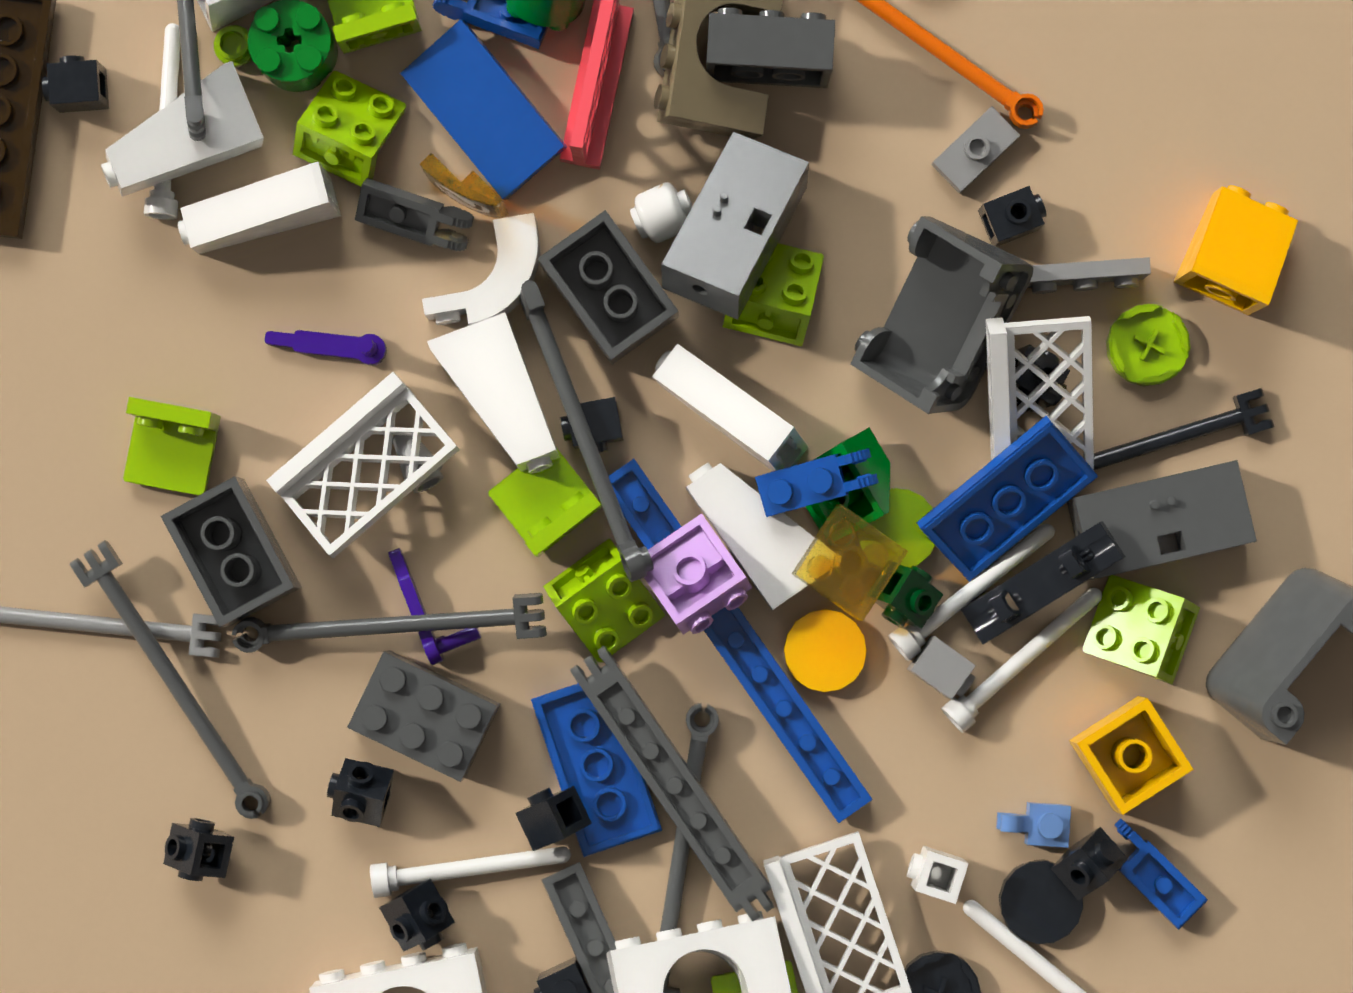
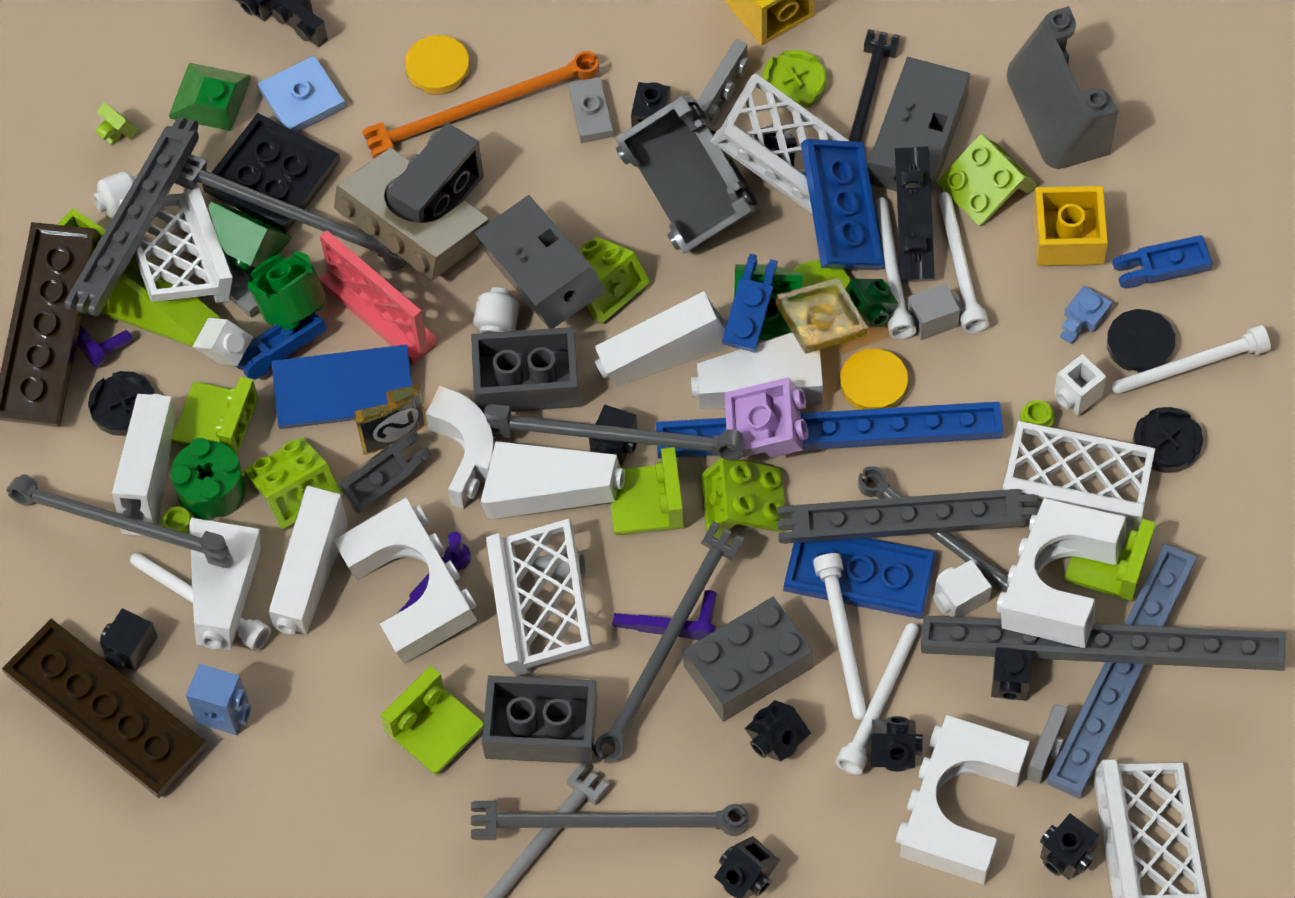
camera: 55 degrees left, 25 degrees down
(57, 223) = (218, 699): none -> medium blue brick
(301, 376) = (442, 607): none -> white arch
(552, 817) = (878, 612): black brick -> none
(569, 739) = (829, 569): none -> white piece
(630, 882) = (961, 590): none -> white brick
(883, 844) = (1038, 413): none -> lime plate
(1089, 863) = (1130, 288): black brick -> none

